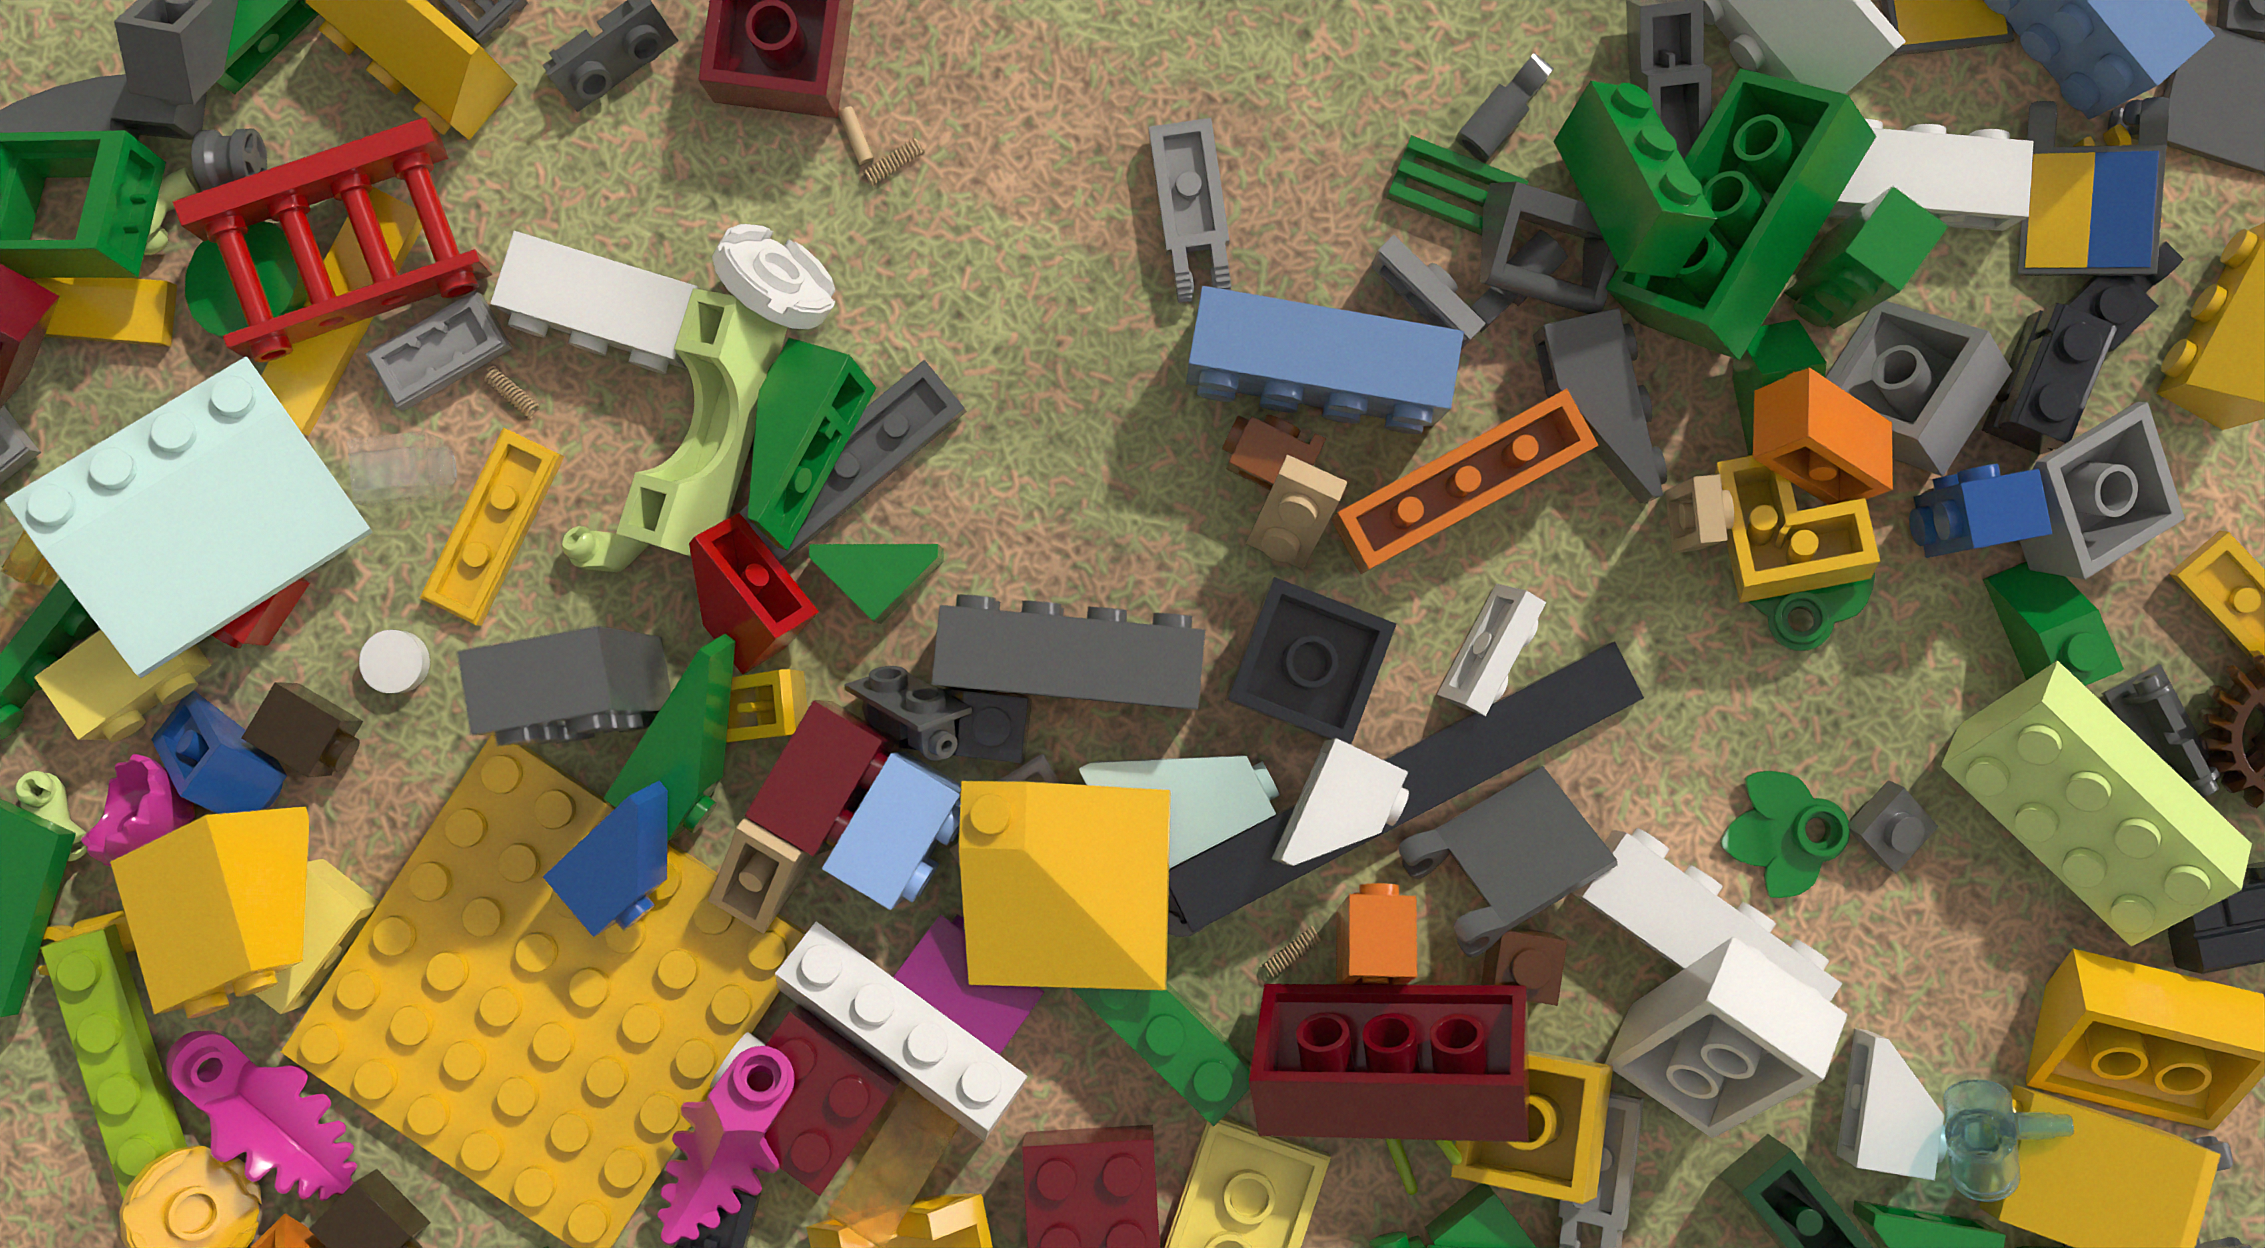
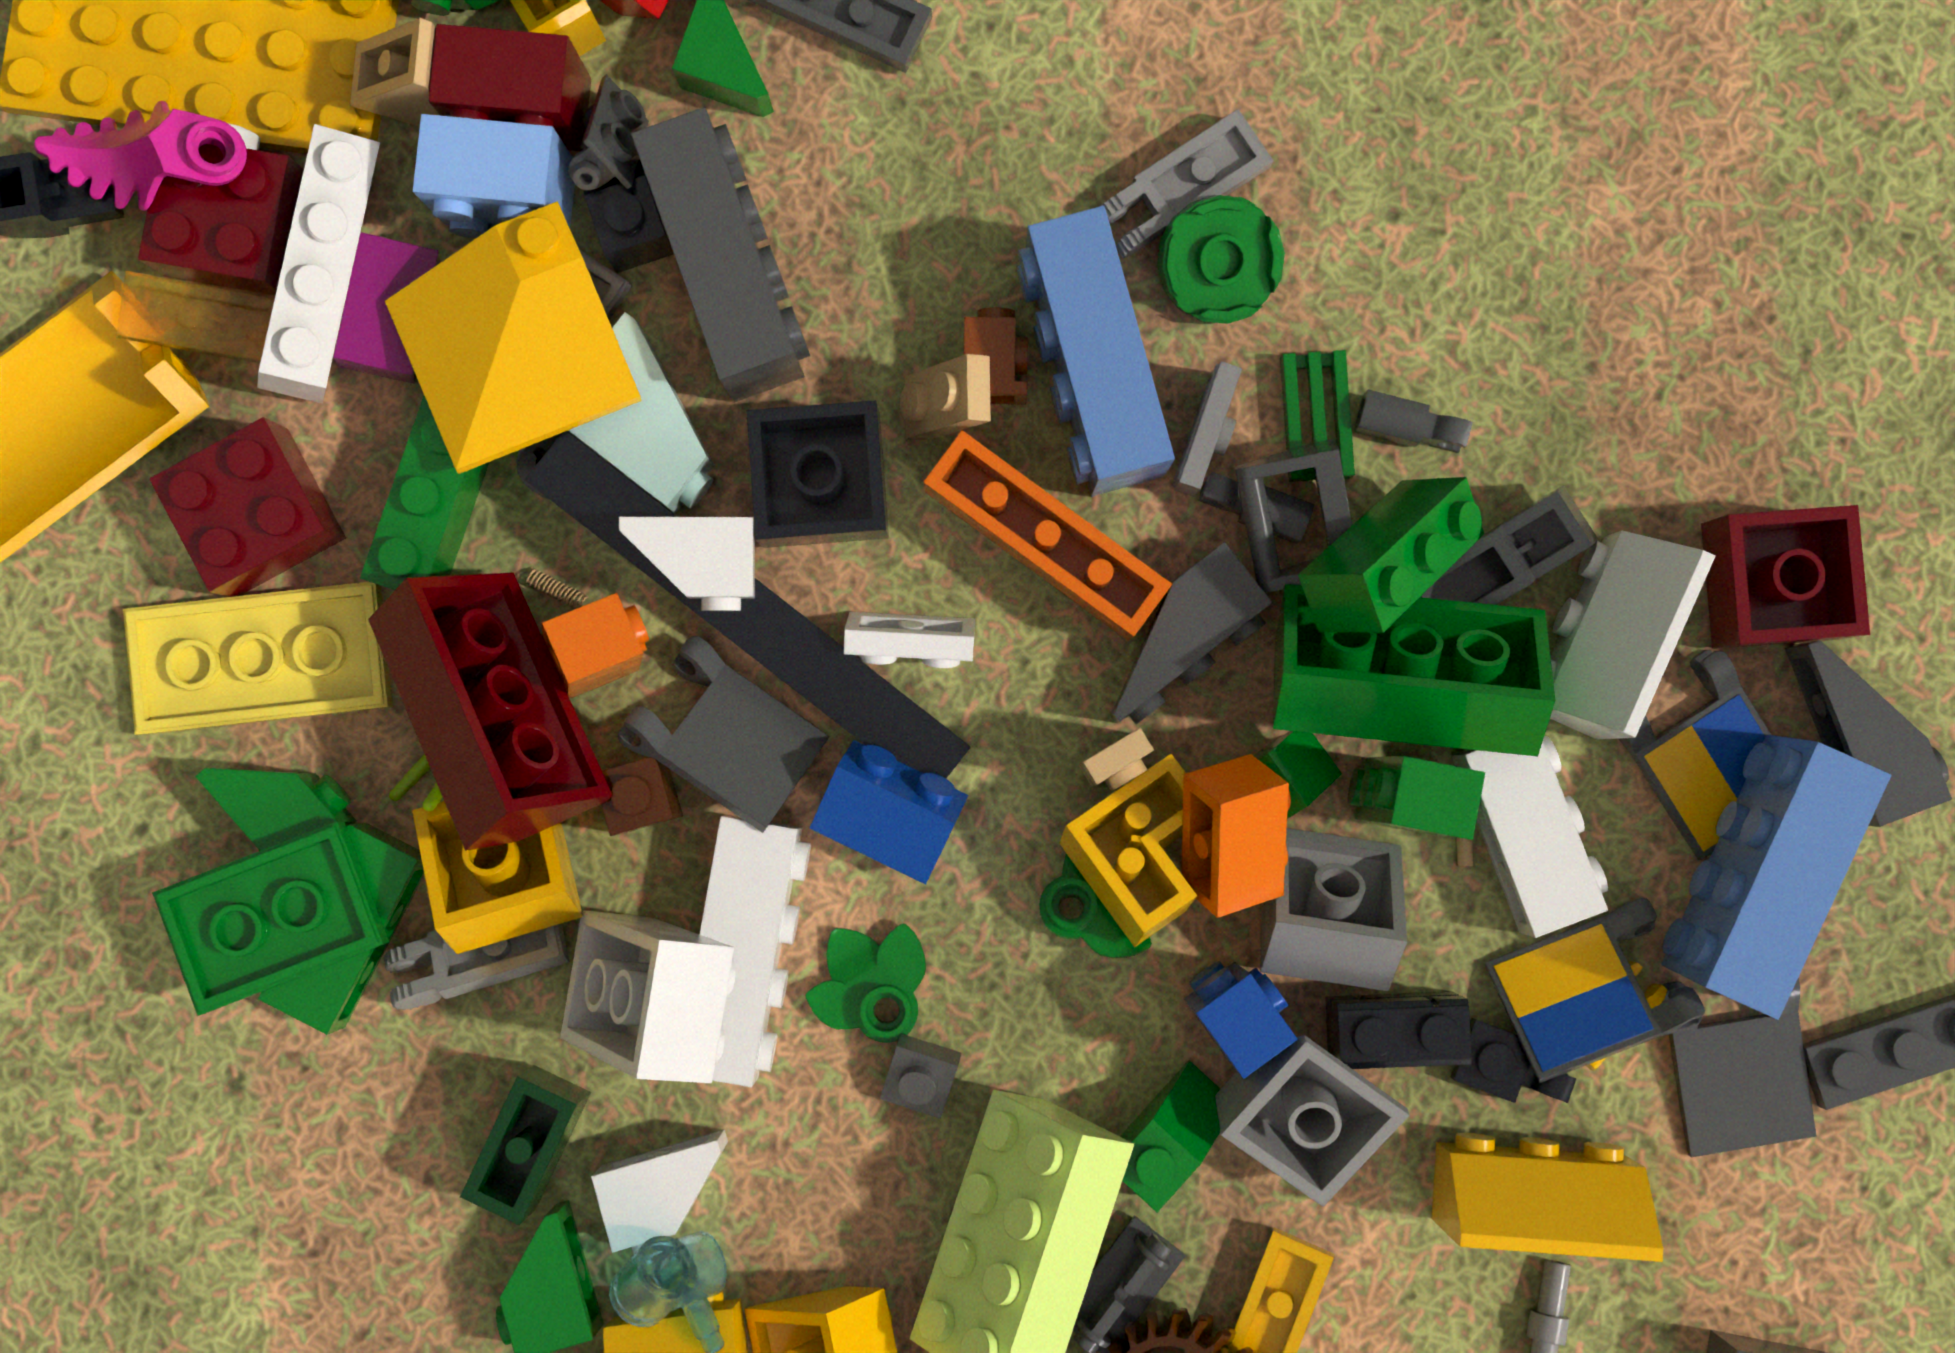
camera: 60 degrees right, 0 degrees up
(1277, 207) = (1220, 259): none -> green tile
(1645, 741) = (889, 810): none -> blue brick

